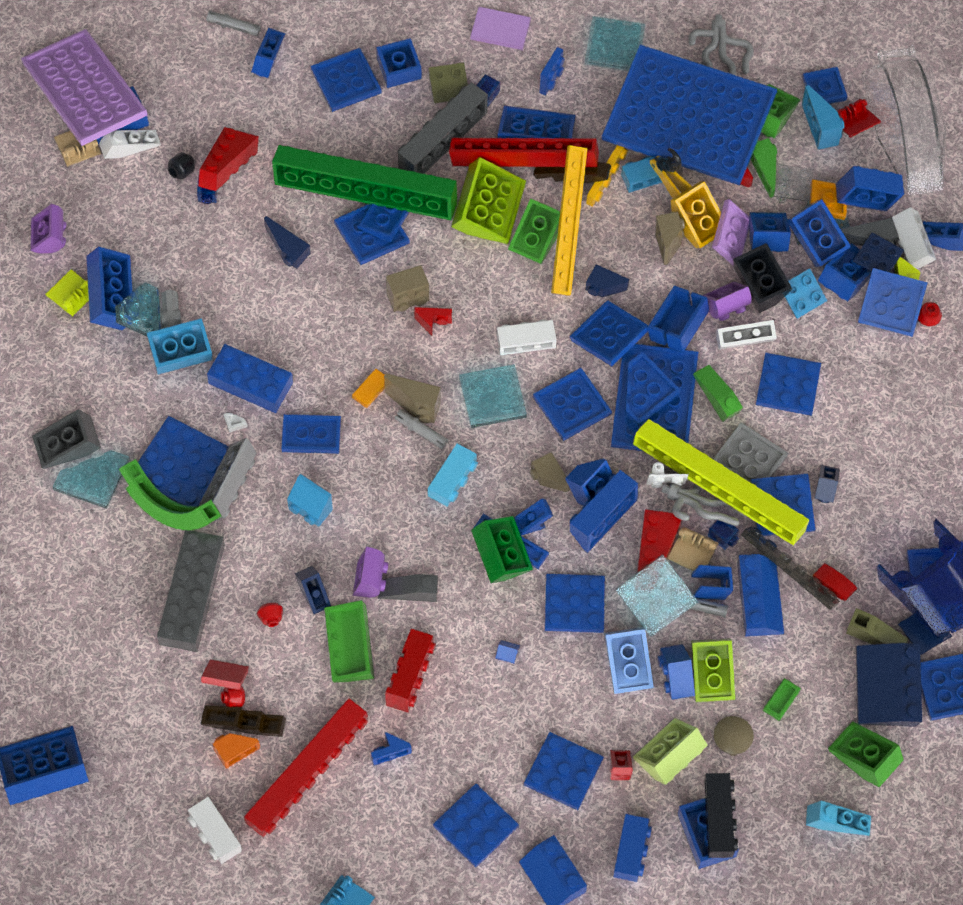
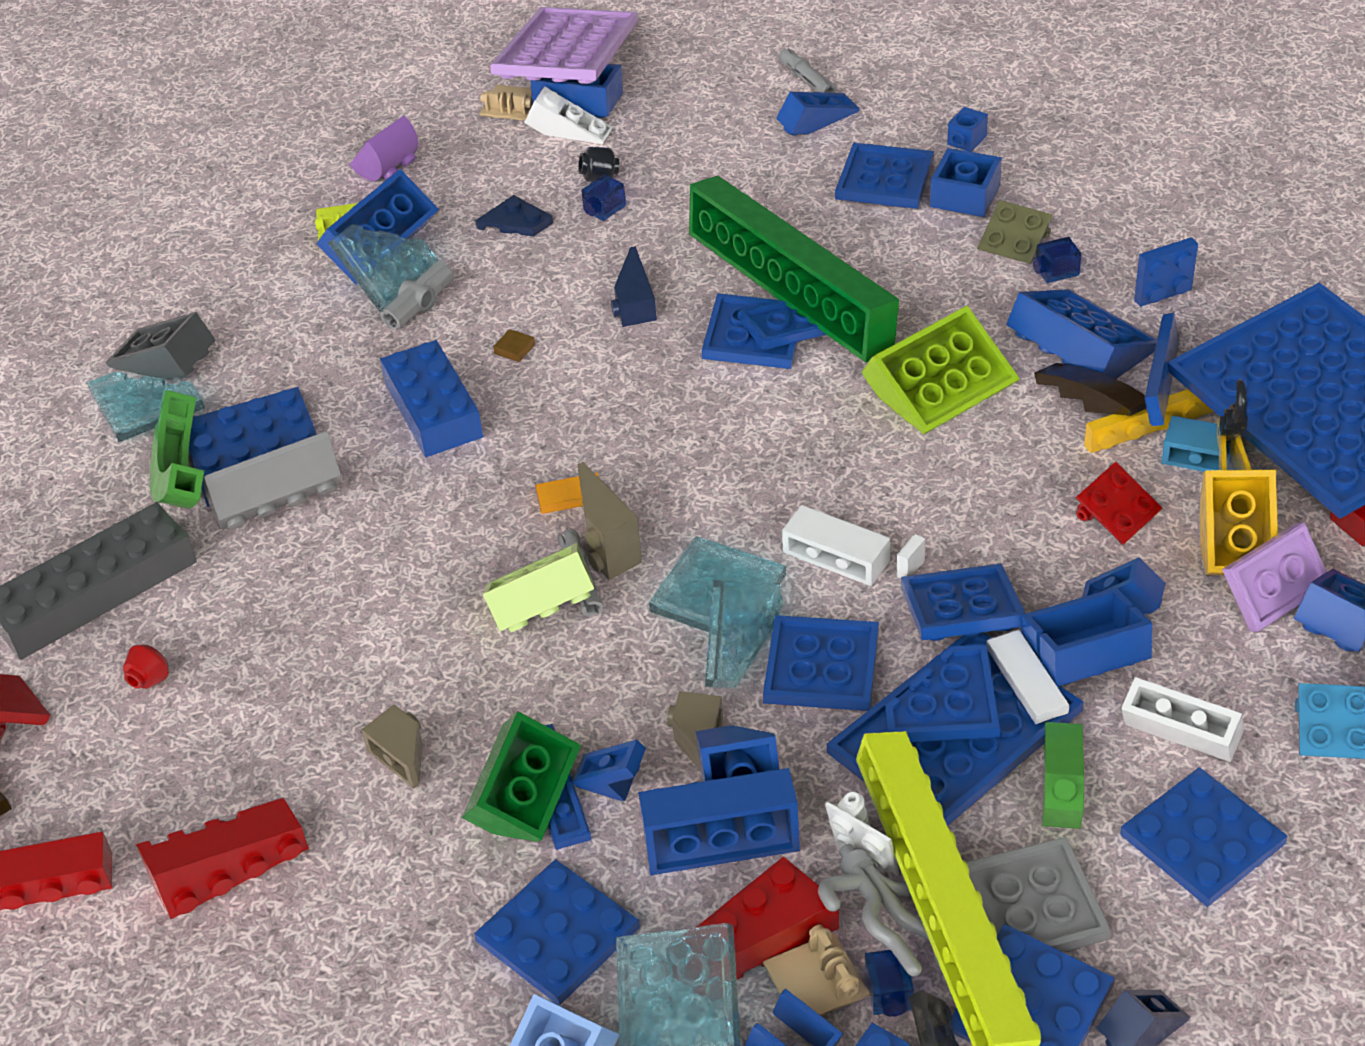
camera: 45 degrees right, 20 degrees down
(167, 230) = (516, 217): none -> dark blue wing
(179, 346) = (383, 318): dark azure slope -> none
(226, 157) = (645, 169): red wedge -> none
(234, 422) = (364, 437): white tile -> none
(254, 317) = (514, 345): none -> pearl gold tile
(310, 501) = (339, 566): dark azure slope -> none
(311, 434) = (436, 498): blue plate -> none
(313, 589) = (227, 672): dark blue slope -> none
(349, 642) = (200, 770): bright green slope -> none
(363, 12) = (967, 129): none -> blue brick
(369, 573) = (313, 692): medium lavender brick -> none
(395, 749) = (83, 950): blue slope -> none
(407, 288) = (726, 401): dark tan brick -> none
(411, 588) = (353, 755): dark grey slope -> none
(415, 450) = (539, 588): none -> yellowish green slope
(428, 316) = (733, 453): red slope -> none
(428, 565) = (396, 743): none -> dark tan slope
(450, 122) = (956, 264): dark grey brick -> none
(452, 475) = (559, 648): medium azure brick -> none
(500, 28) = (1143, 213): lavender tile -> none
(507, 651) = (389, 929): slope -> none
(520, 151) = (1046, 332): red brick -> none
(529, 412) = (738, 627): none -> clear light blue plate
(536, 231) = (979, 433): bright green slope -> none
(565, 322) = (911, 556): none -> white tile
(569, 220) = (1022, 428): yellow plate -> none
(601, 143) = (1160, 378): none -> blue tile
(605, 282) = (1018, 541): dark blue slope -> none
(613, 43) = (1284, 279): clear light blue plate -> none
(631, 231) = (1117, 503): none -> red hinge
(668, 355) = (1027, 677): none -> white tile
(669, 234) = (1170, 527): dark tan slope -> none
(674, 275) = (1134, 581): none -> blue slope
(728, 299) = (1193, 661): medium lavender brick -> none
(763, 277) = (1276, 656): black slope -> none

